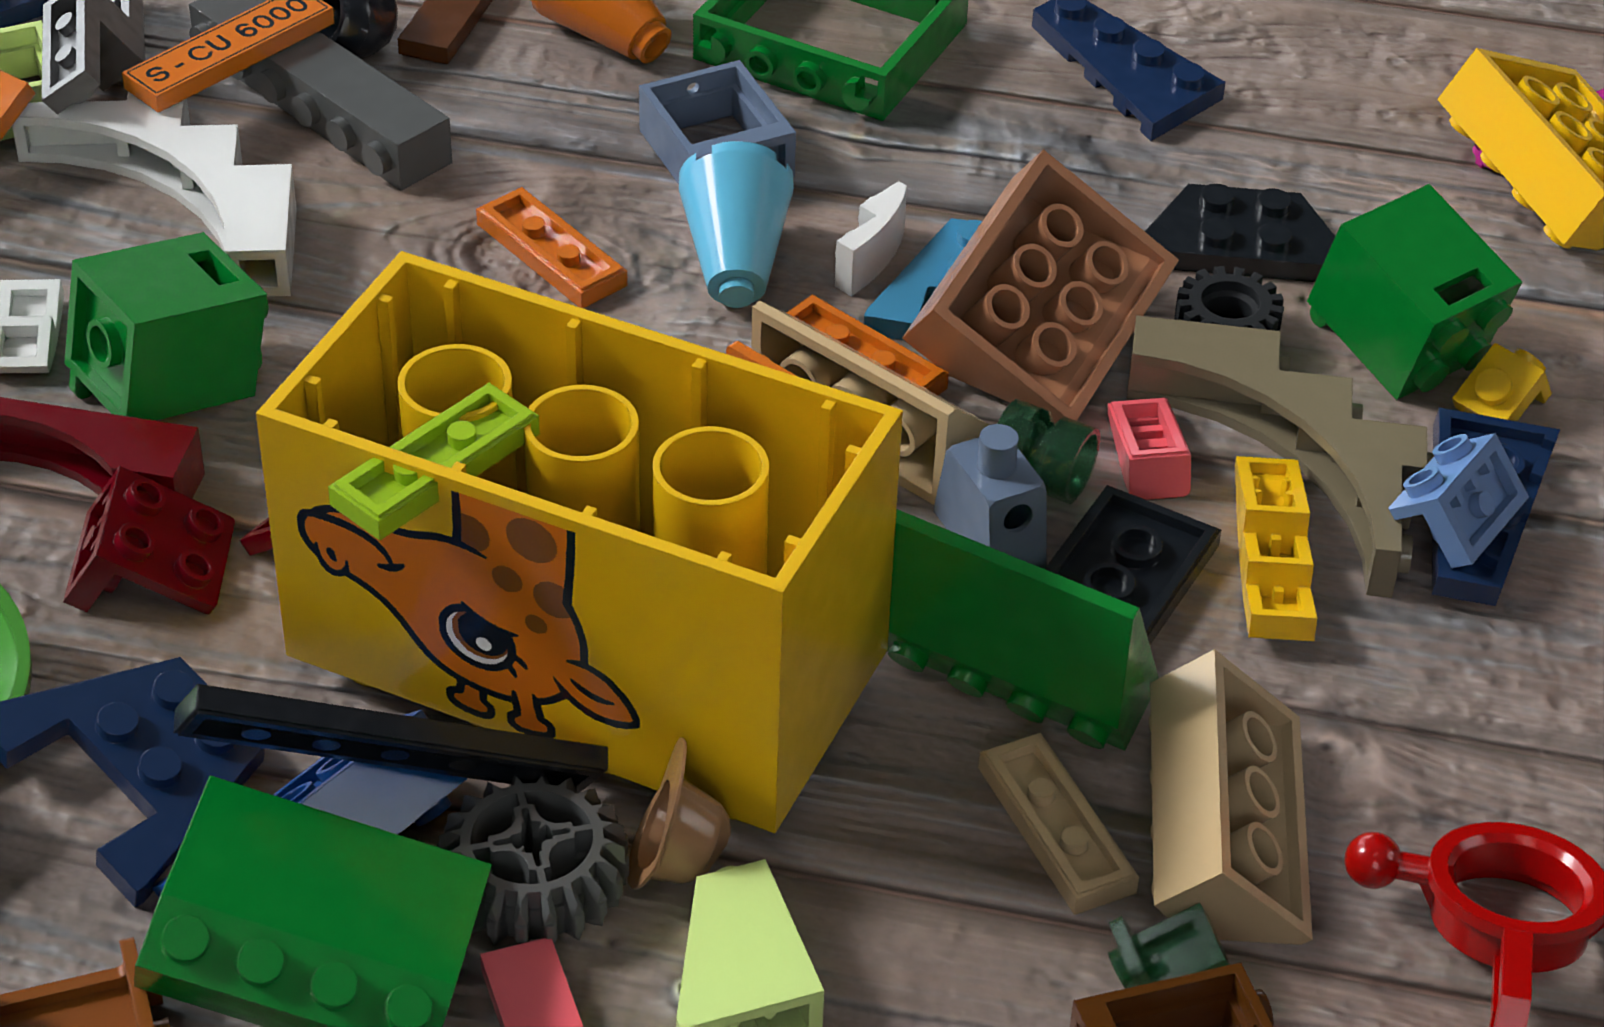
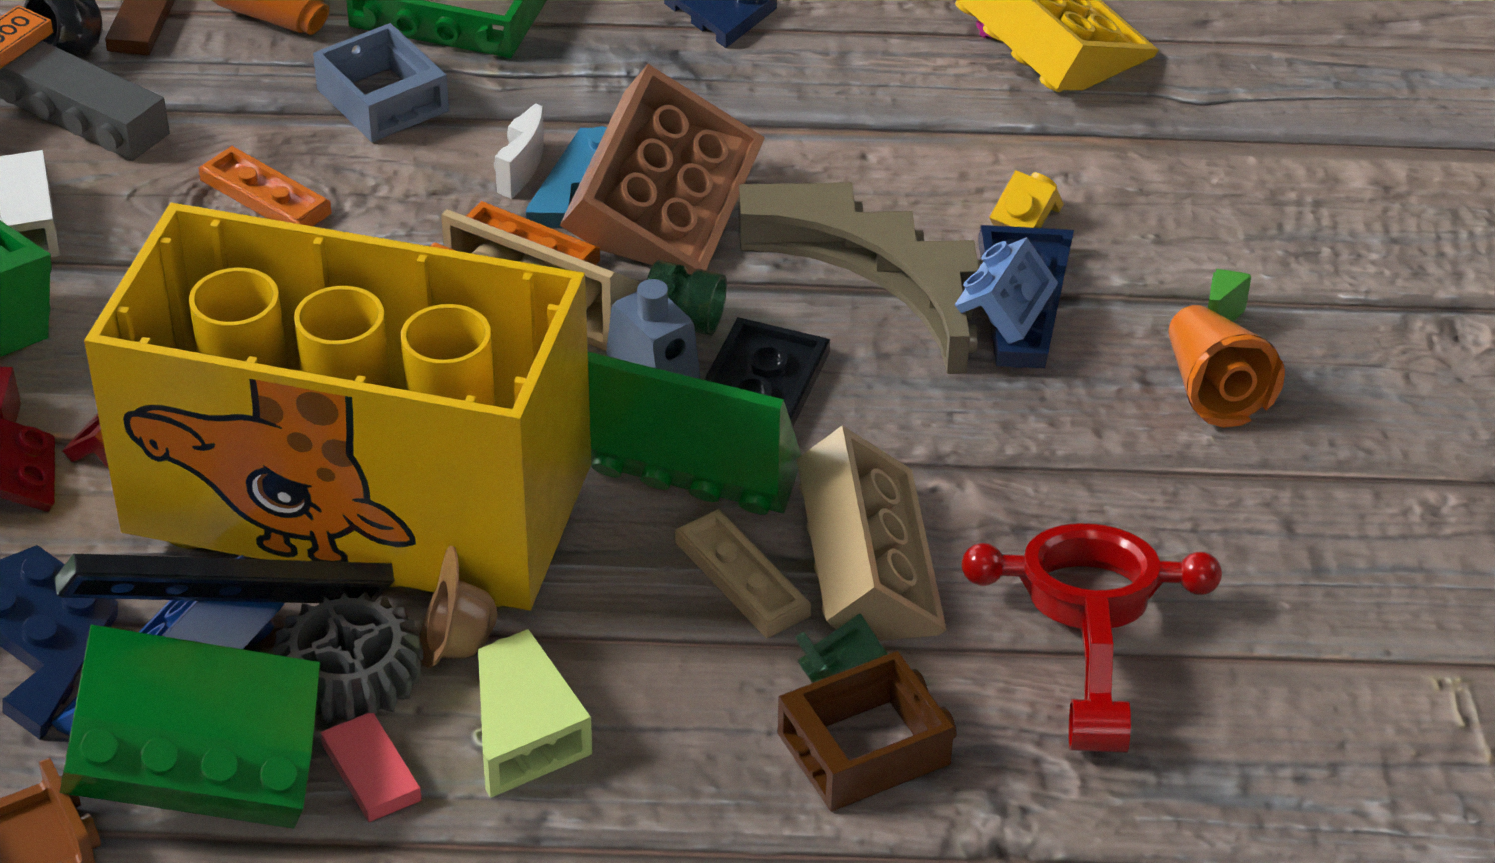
camera: 10 degrees left, 0 degrees up
(388, 501) = (202, 393): lime tile -> none
(736, 217) = (411, 147): medium azure cone -> none
(1150, 448) = (766, 285): coral slope -> none
(1230, 296) = (808, 163): black tyre -> none
(1244, 229) = (816, 111): black wing -> none
(1274, 549) = (872, 347): yellow slope -> none
(1413, 292) = (948, 139): green container -> none

